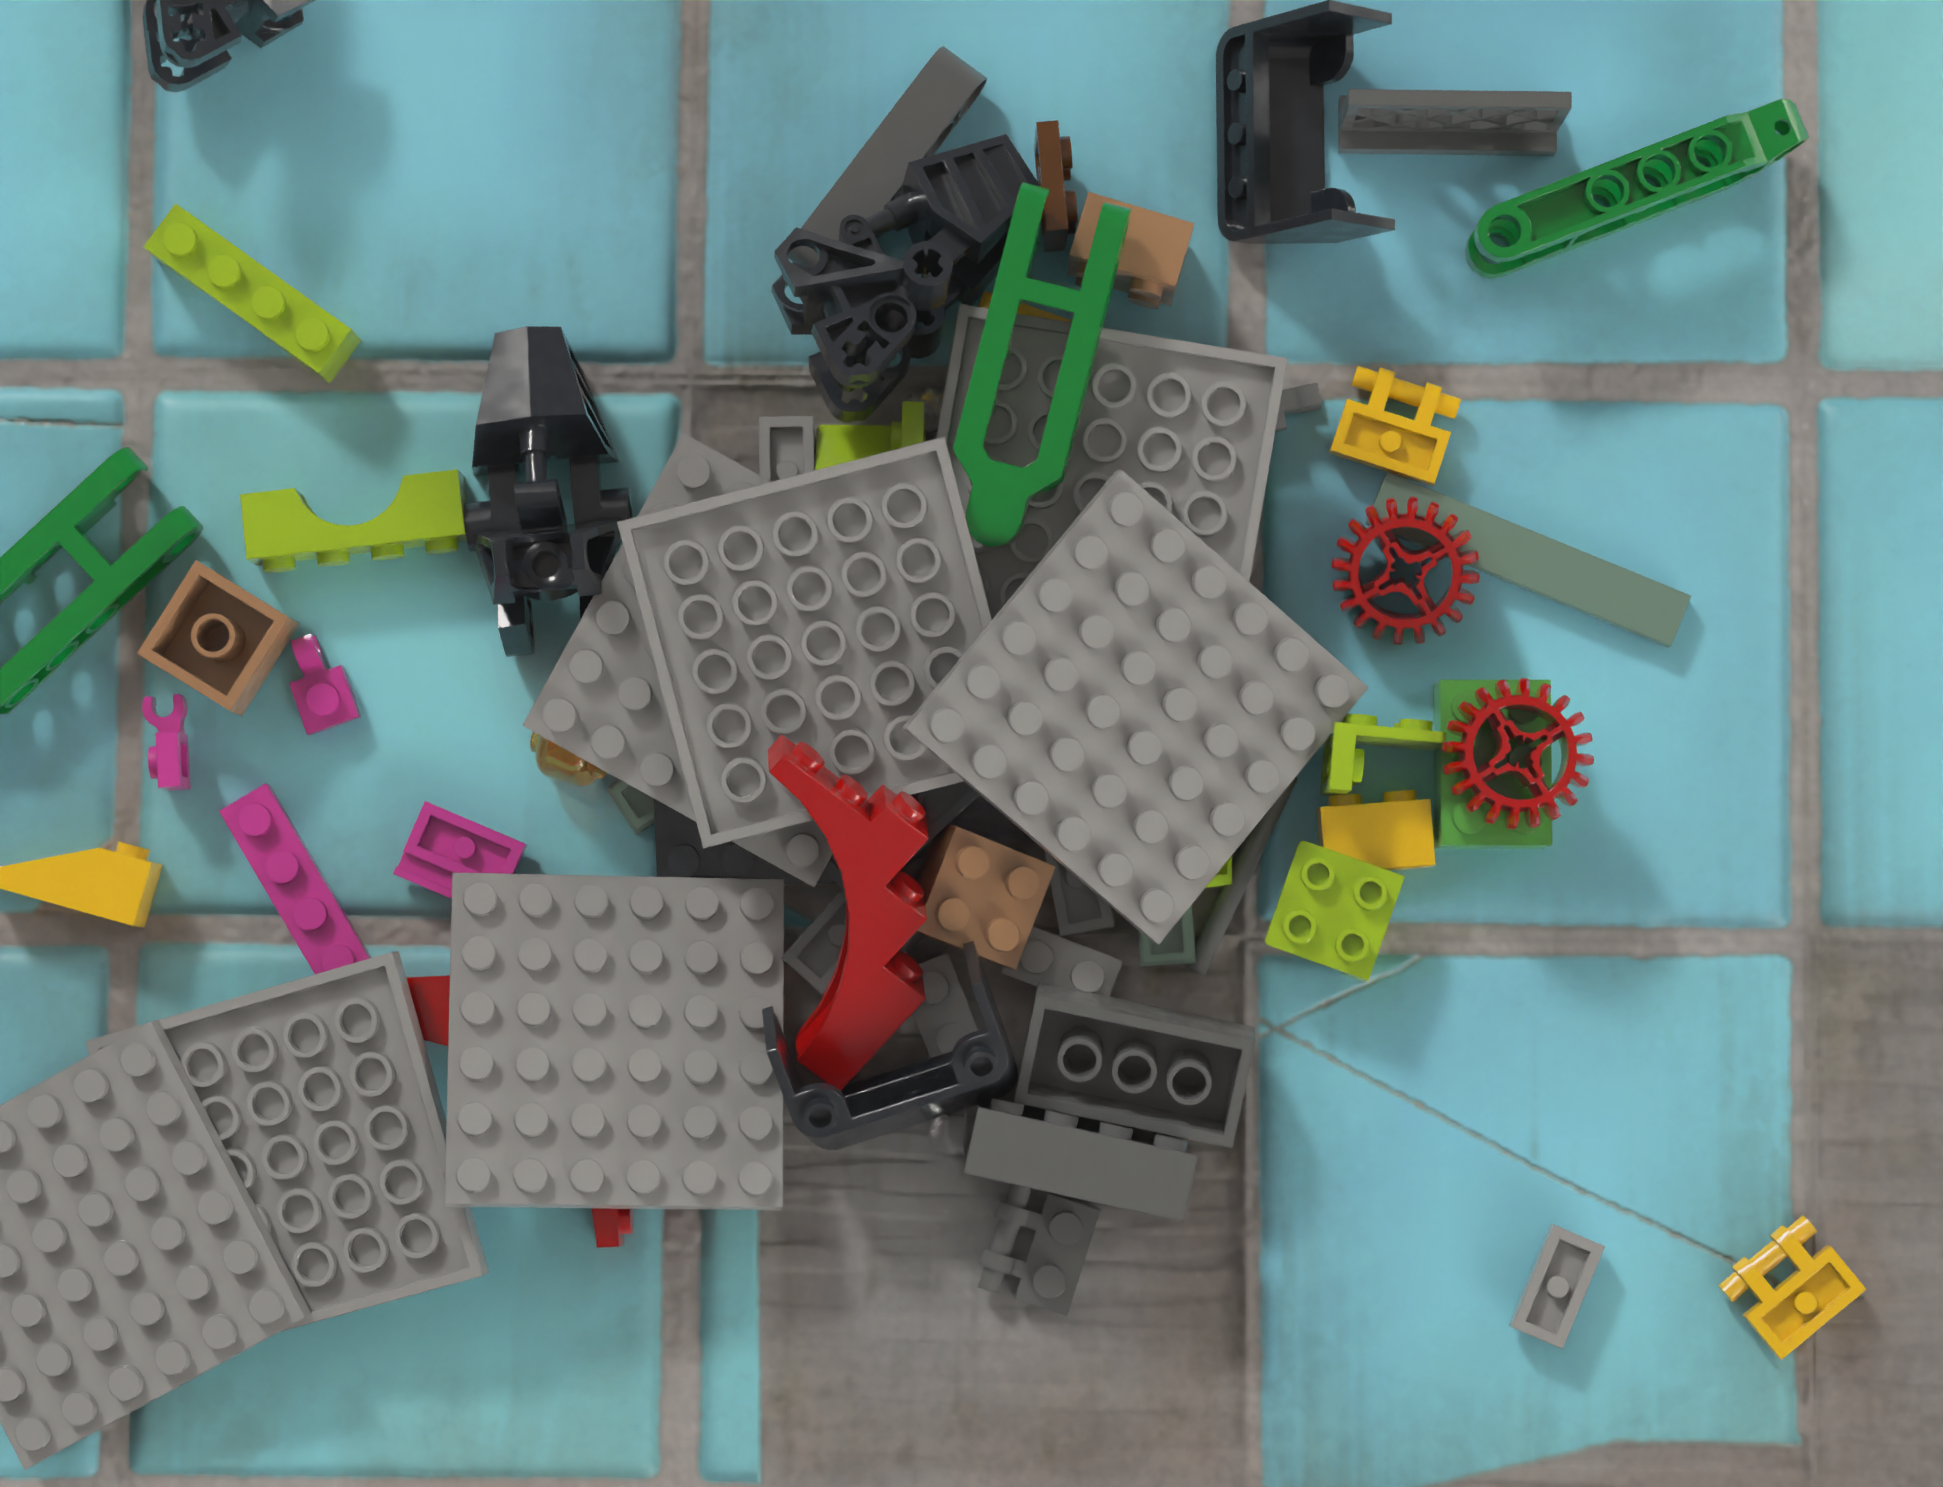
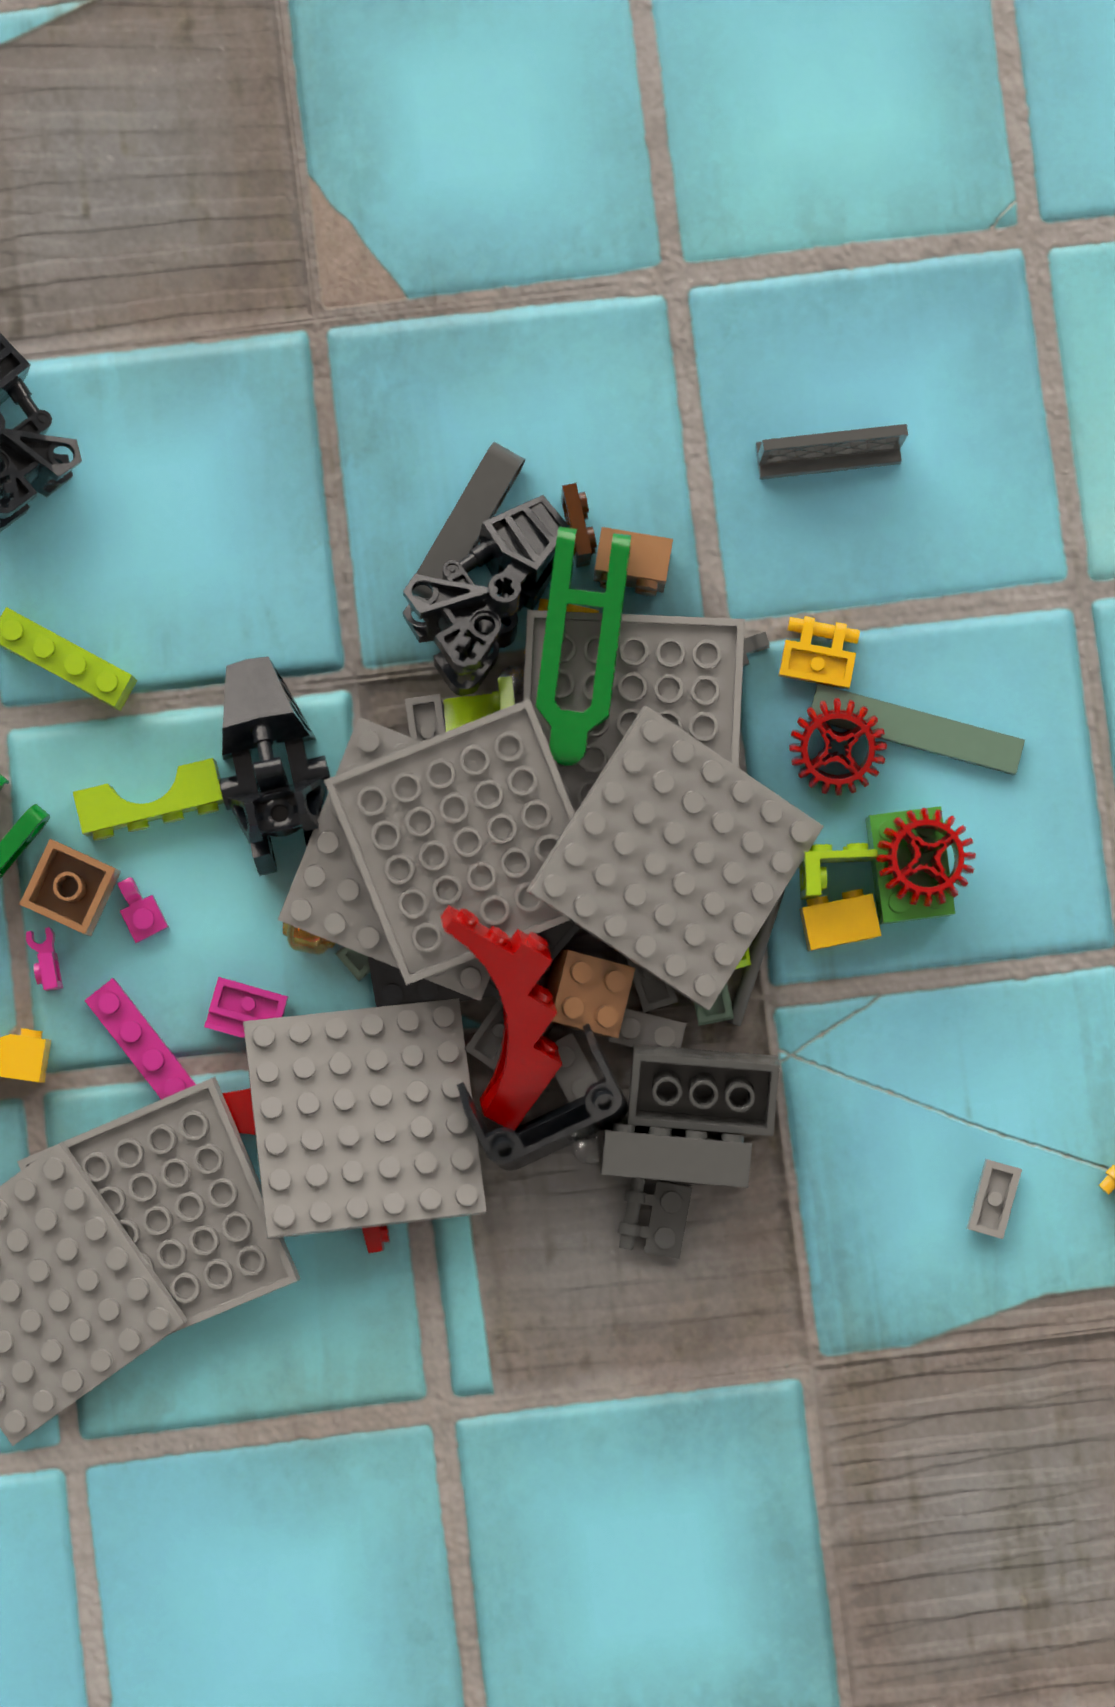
camera: 15 degrees left, 0 degrees up
(1274, 126) = (716, 467): black windscreen -> none
(1334, 910) = (819, 973): lime bracket -> none
(1568, 217) = (914, 503): green piece -> none

